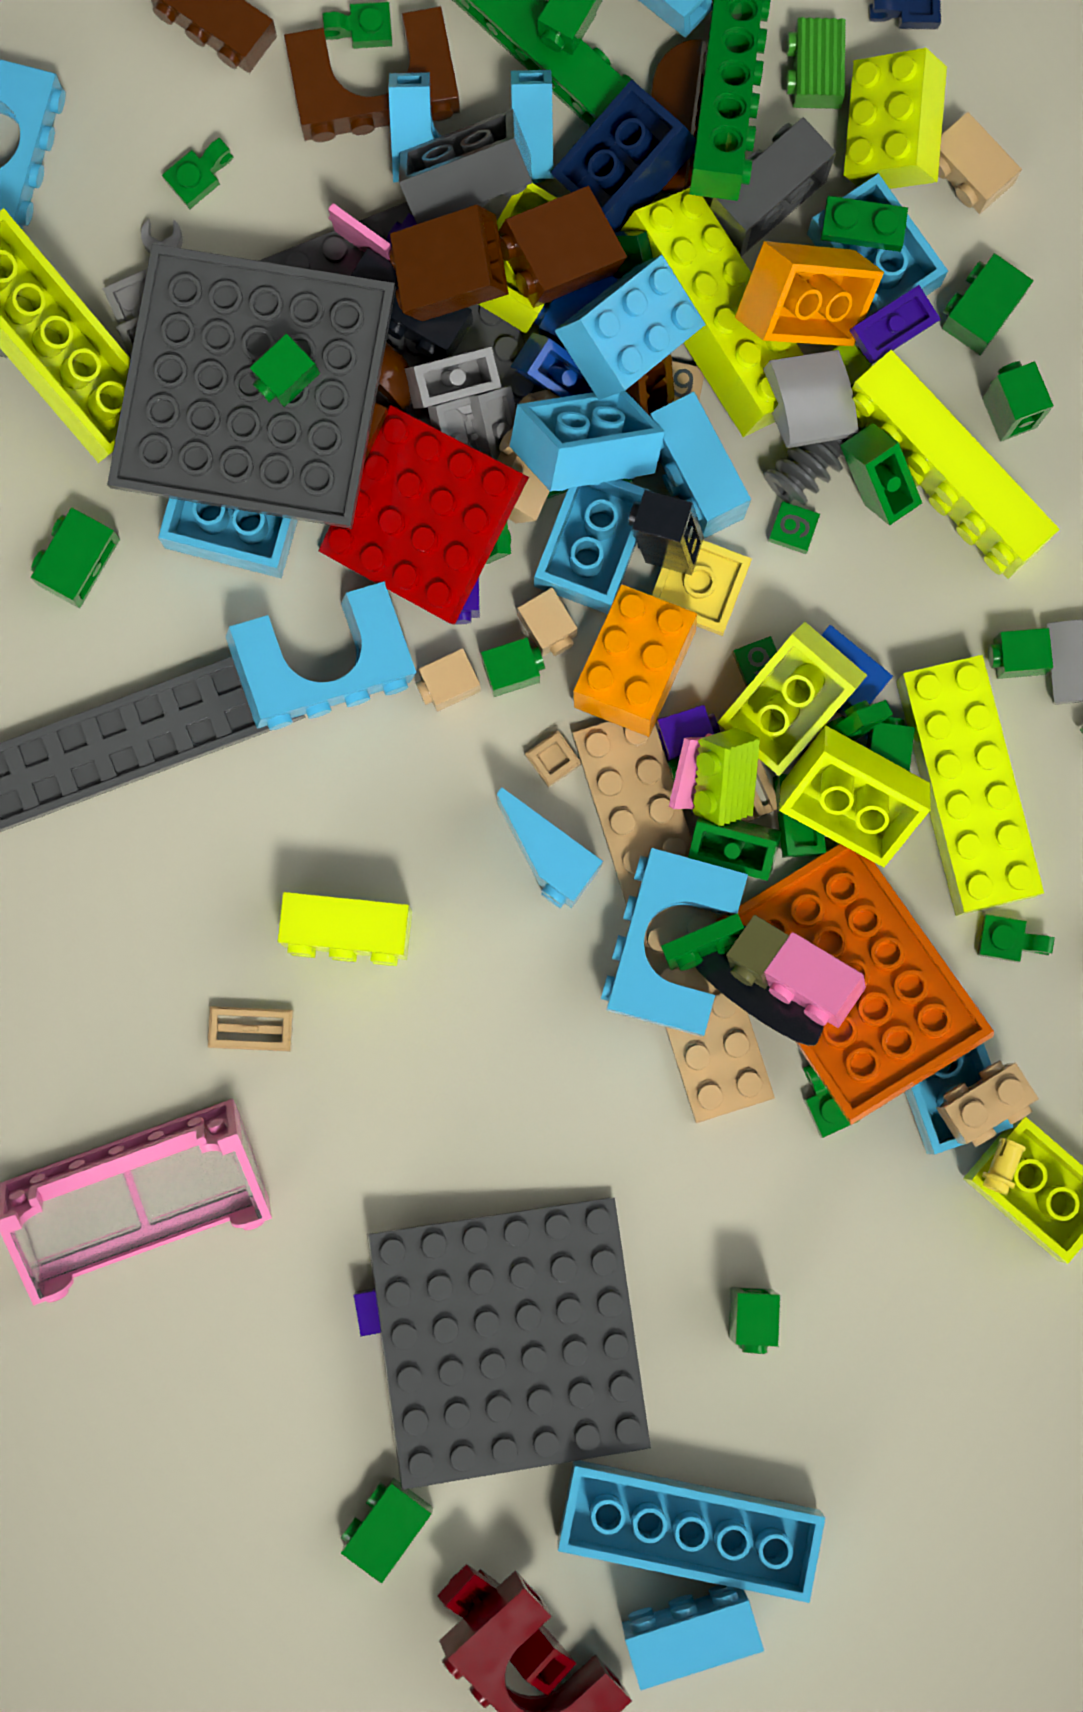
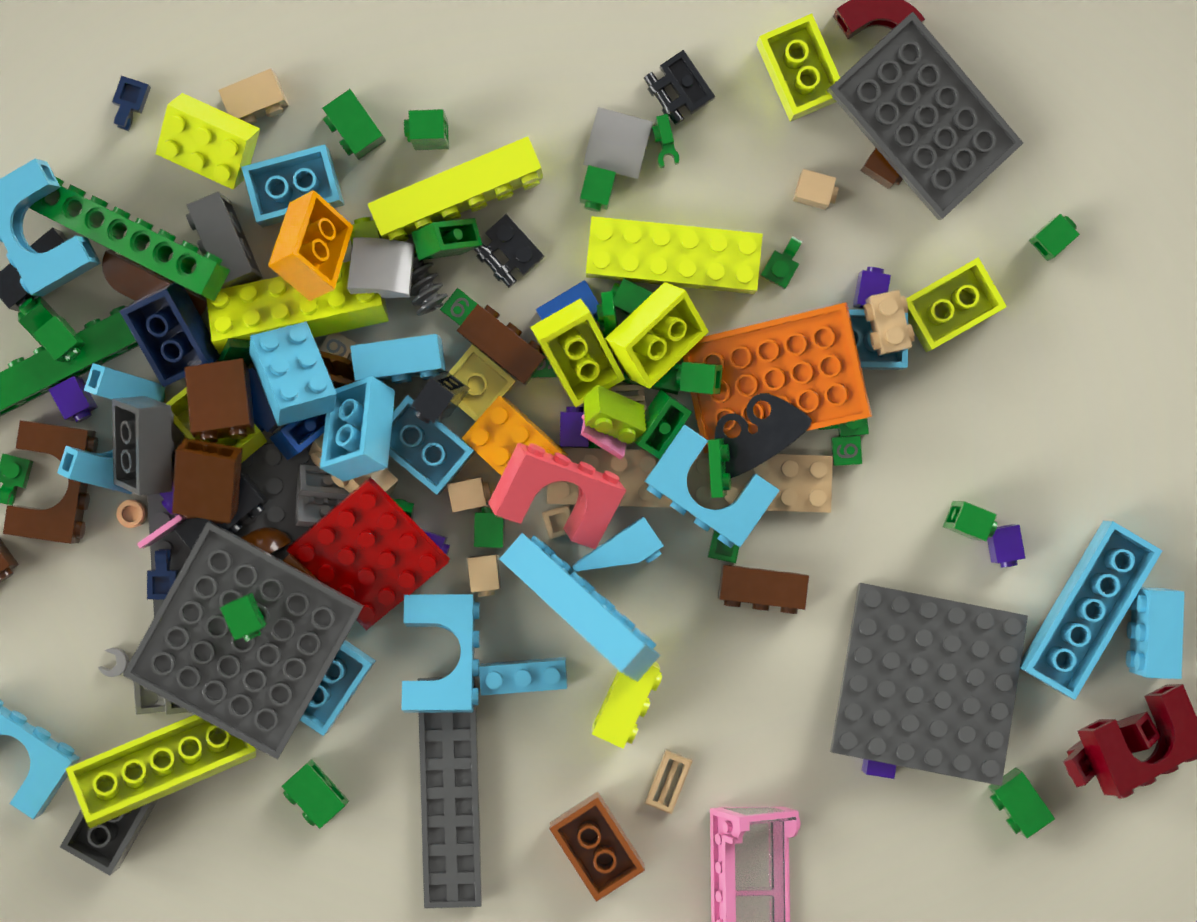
camera: 70 degrees left, 5 degrees up
(130, 958) = (597, 846): none -> dark orange brick
(194, 177) = (79, 626): green plate -> none
(295, 253) = (162, 578): none -> dark blue plate
(328, 780) = (523, 676): none -> medium azure brick
(367, 194) = (131, 513): none -> light nougat tile
(452, 377) = (283, 502): light grey brick -> none
(452, 818) = (581, 606): none -> medium azure brick
(490, 67) = (73, 400): none -> dark purple brick
(560, 1064) = (763, 588): none -> reddish brown brick
(589, 994) = (721, 551): none -> green tile
(617, 688) = (533, 469): none -> coral arch
(737, 1382) = (1006, 545): none -> dark purple brick
(755, 951) = (738, 435): olive brick -> none
(767, 597) = (502, 343): none -> reddish brown brick
(788, 1115) = (846, 450): none -> green tile
(814, 981) = (770, 406): bright pink brick -> none
(818, 63) = (147, 177): bright green brick -> none
(818, 876) = (700, 377): none -> green brick
(864, 223) = (273, 189): green plate -> none
(894, 324) = (350, 194): dark purple plate -> none
(904, 570) = (514, 245): none -> black plate
(1003, 1166) = (932, 326): light yellow pin -> none
(1034, 1065) = (870, 283): none -> dark purple brick

